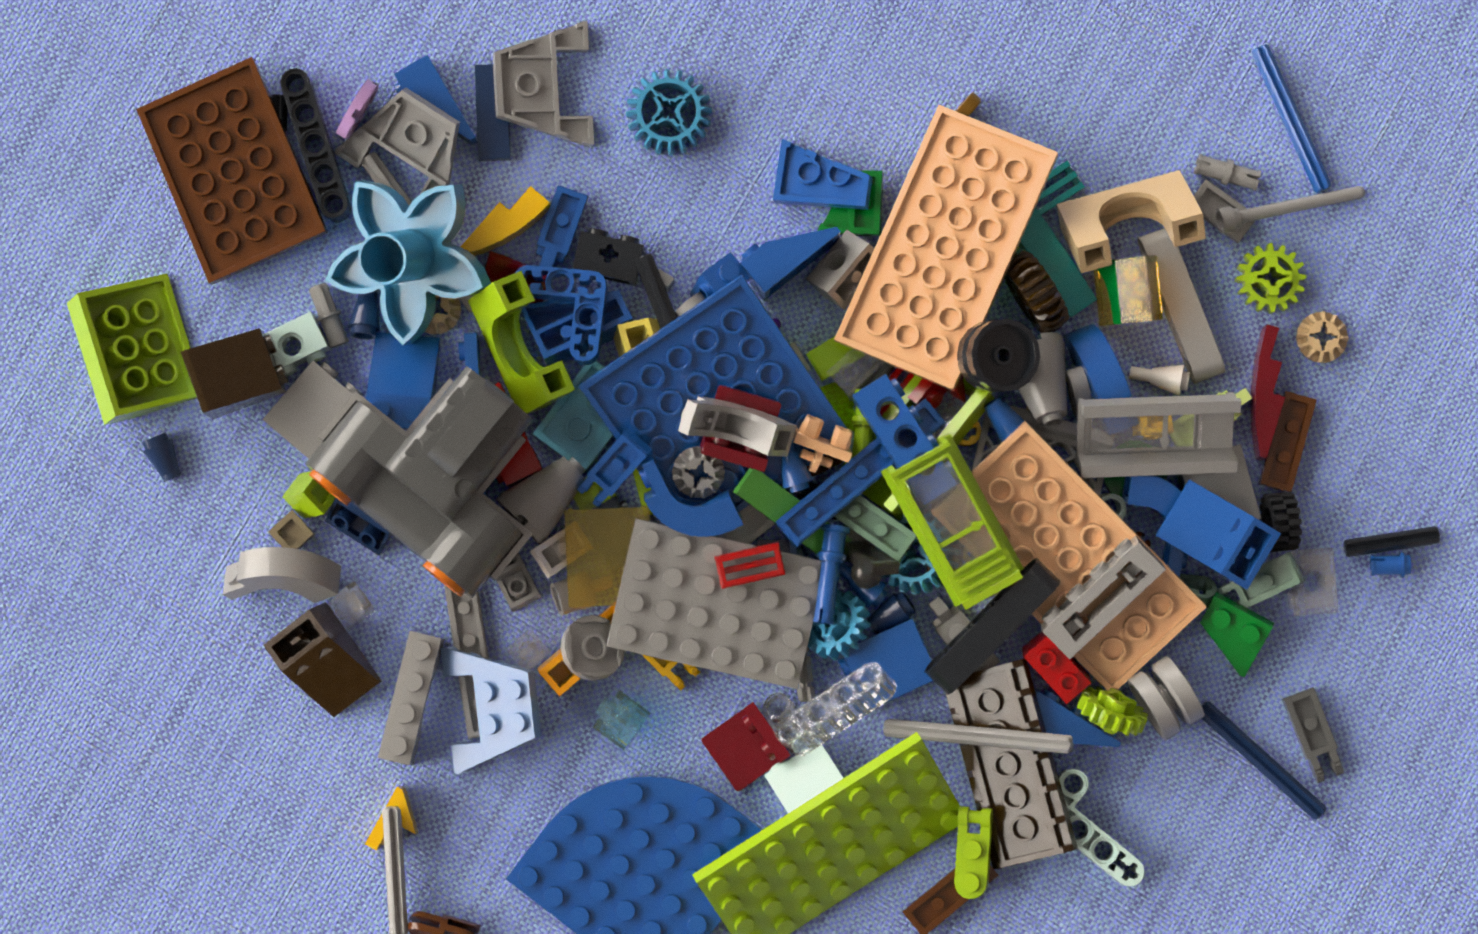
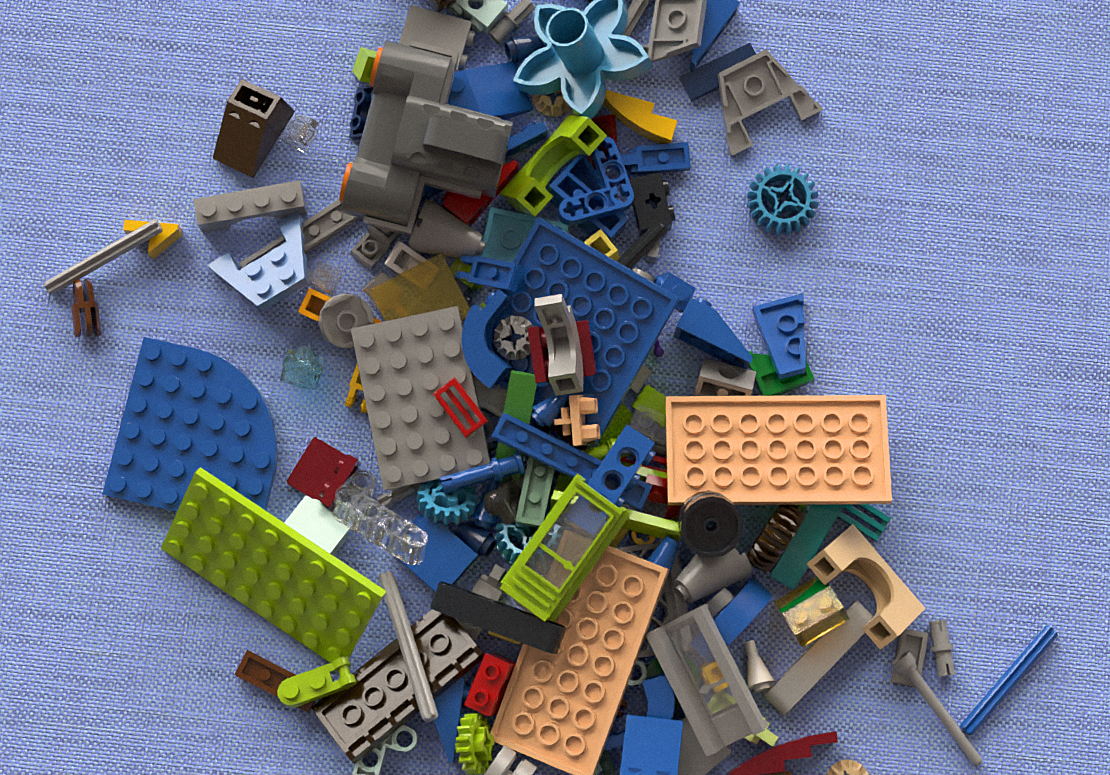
camera: 65 degrees right, 5 degrees down
(283, 569) = (305, 71): light grey arch -> none
(291, 531) = (336, 66): dark tan plate -> none
(969, 104) = (897, 422): pearl gold tile -> none
(1101, 577) = (602, 708): light grey brick -> none
(1270, 264) = (880, 731): lime gear -> none

